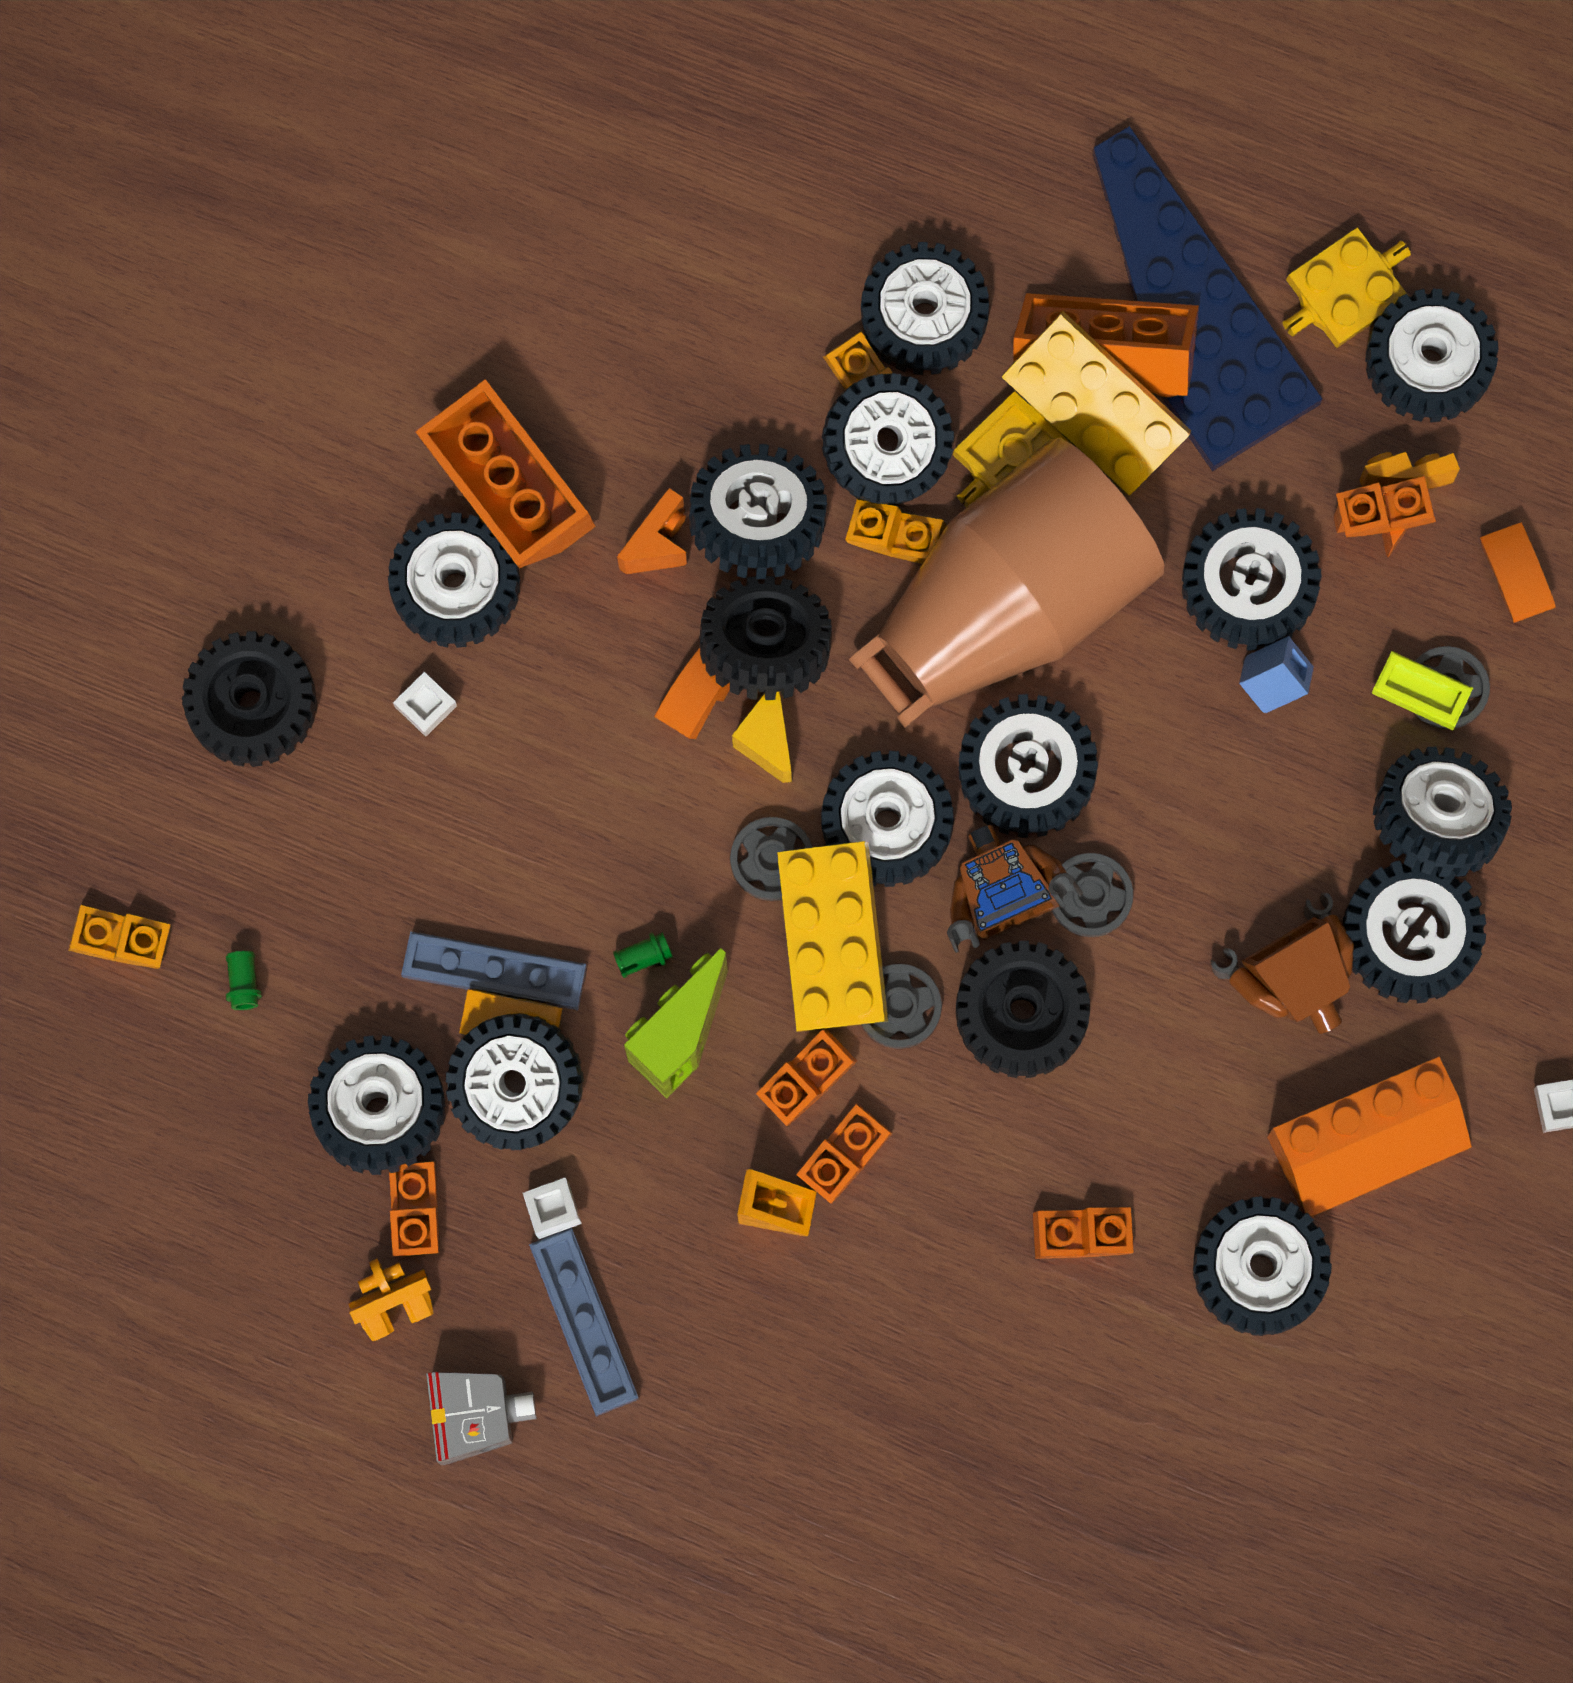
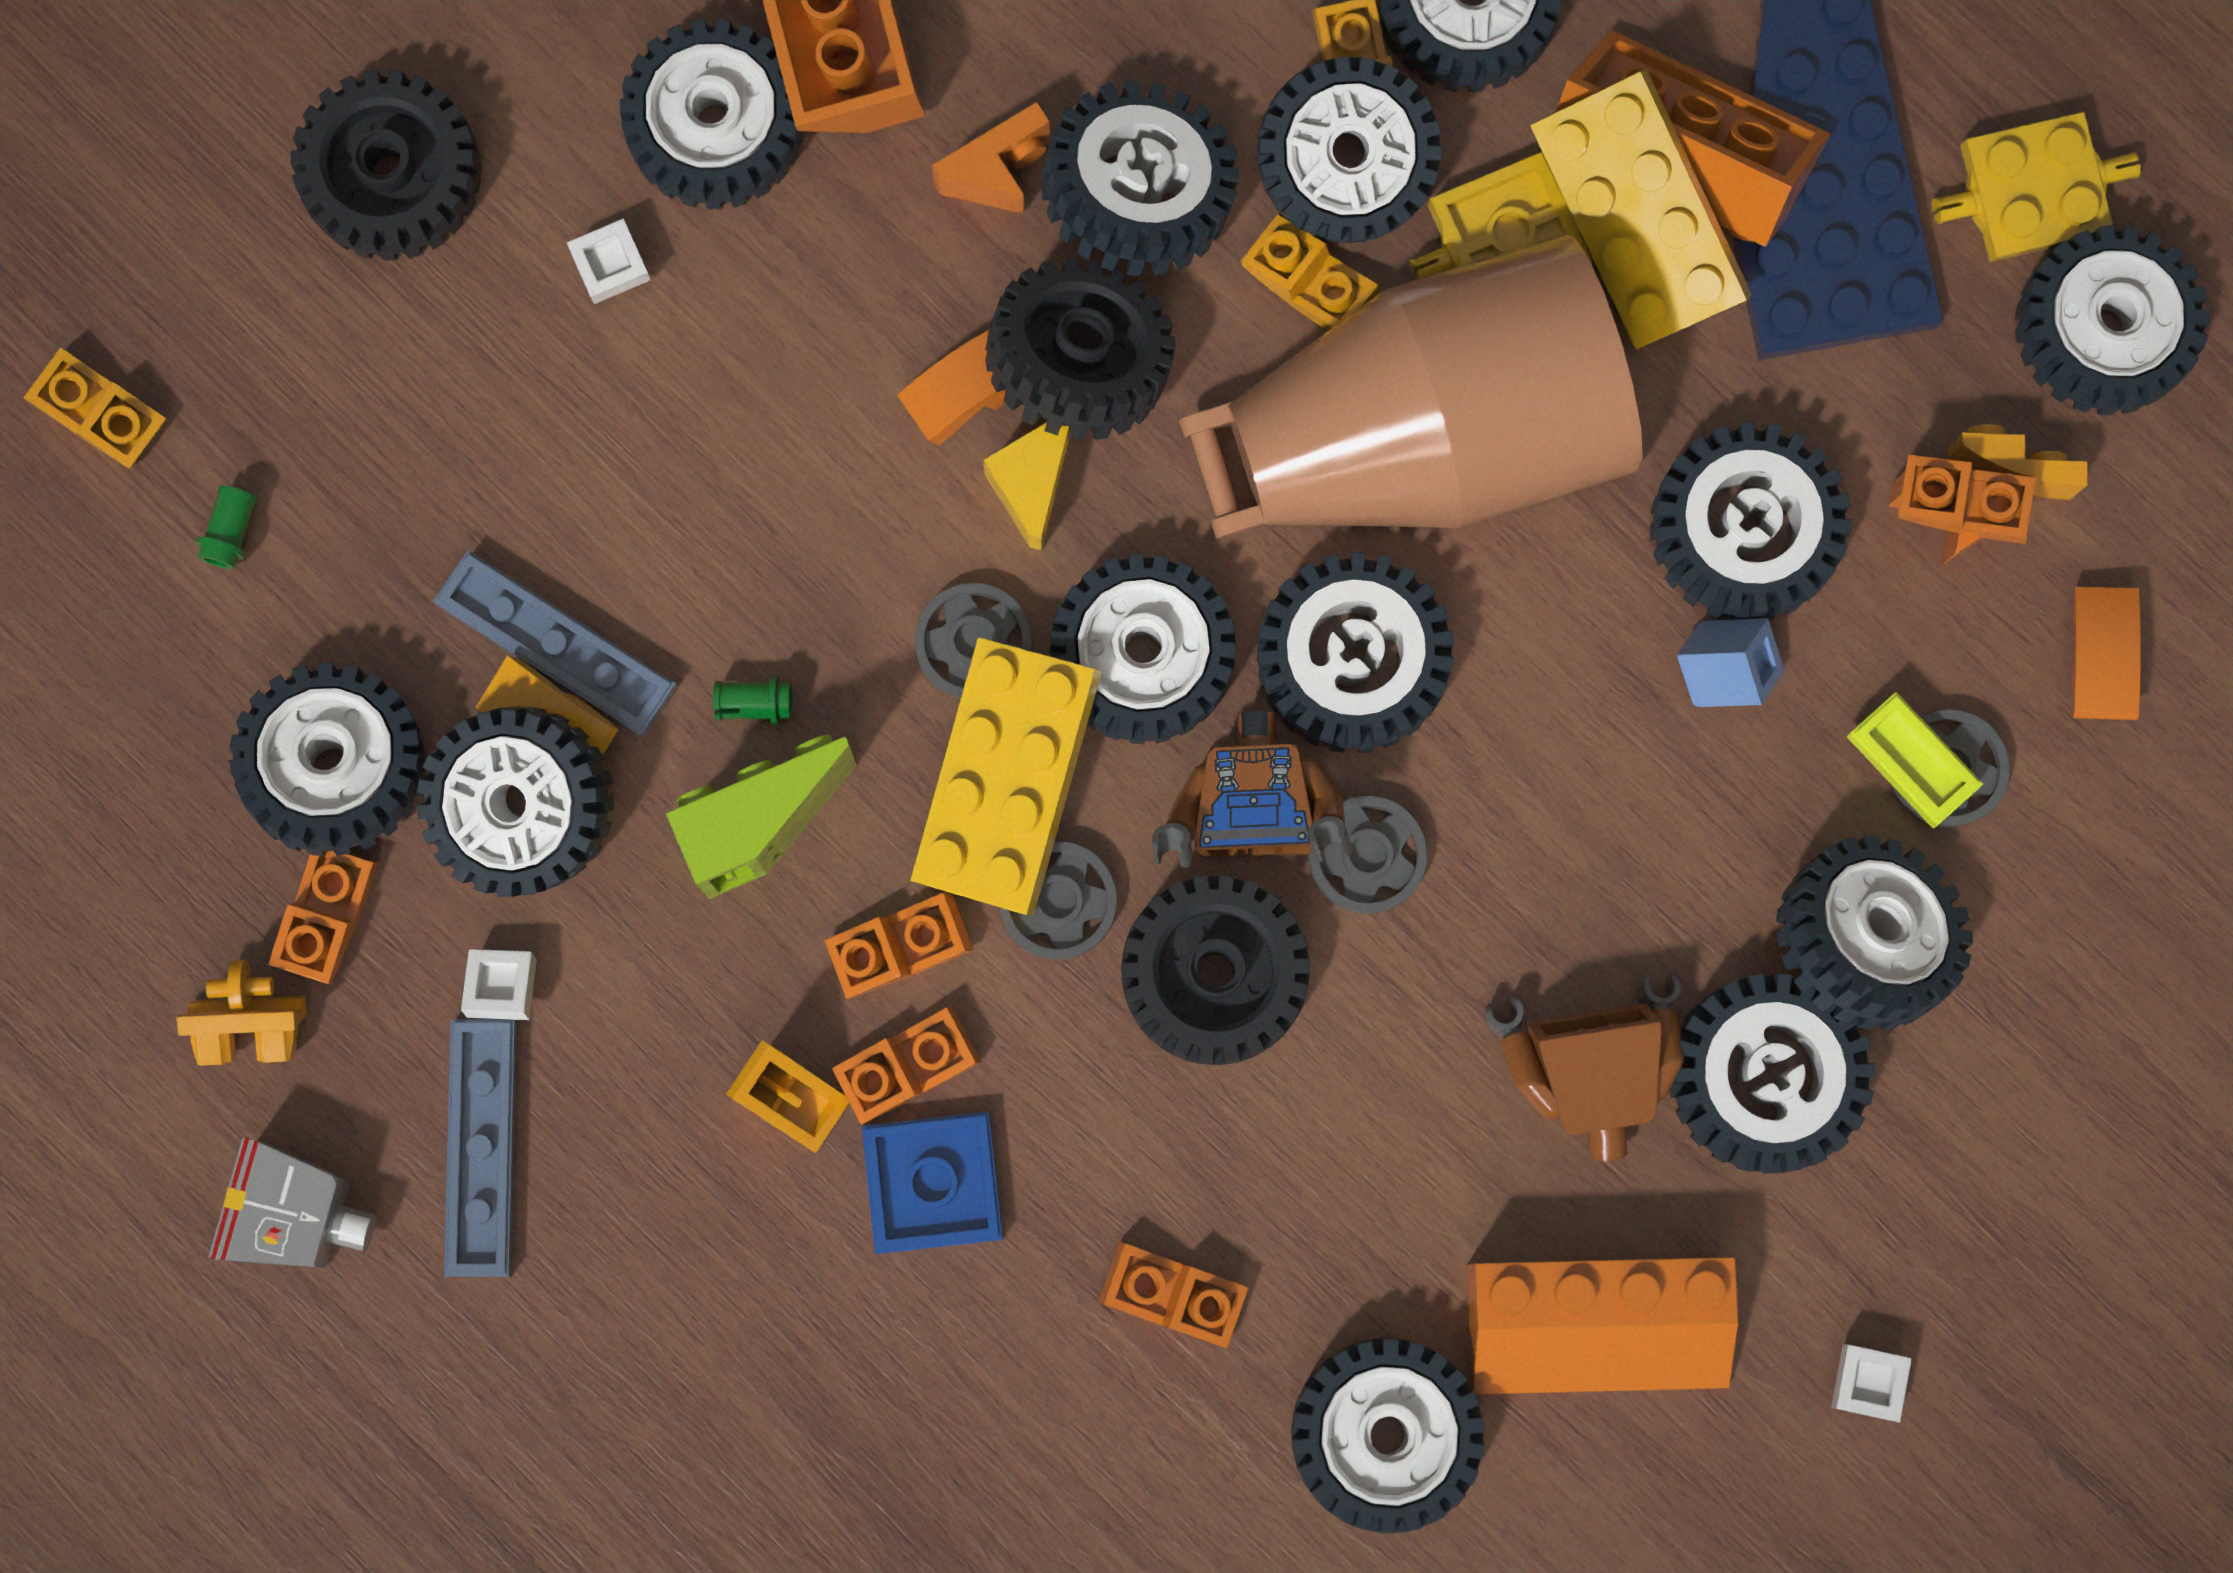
camera: 15 degrees right, 5 degrees up
(893, 1224) = (932, 1183): none -> blue tile

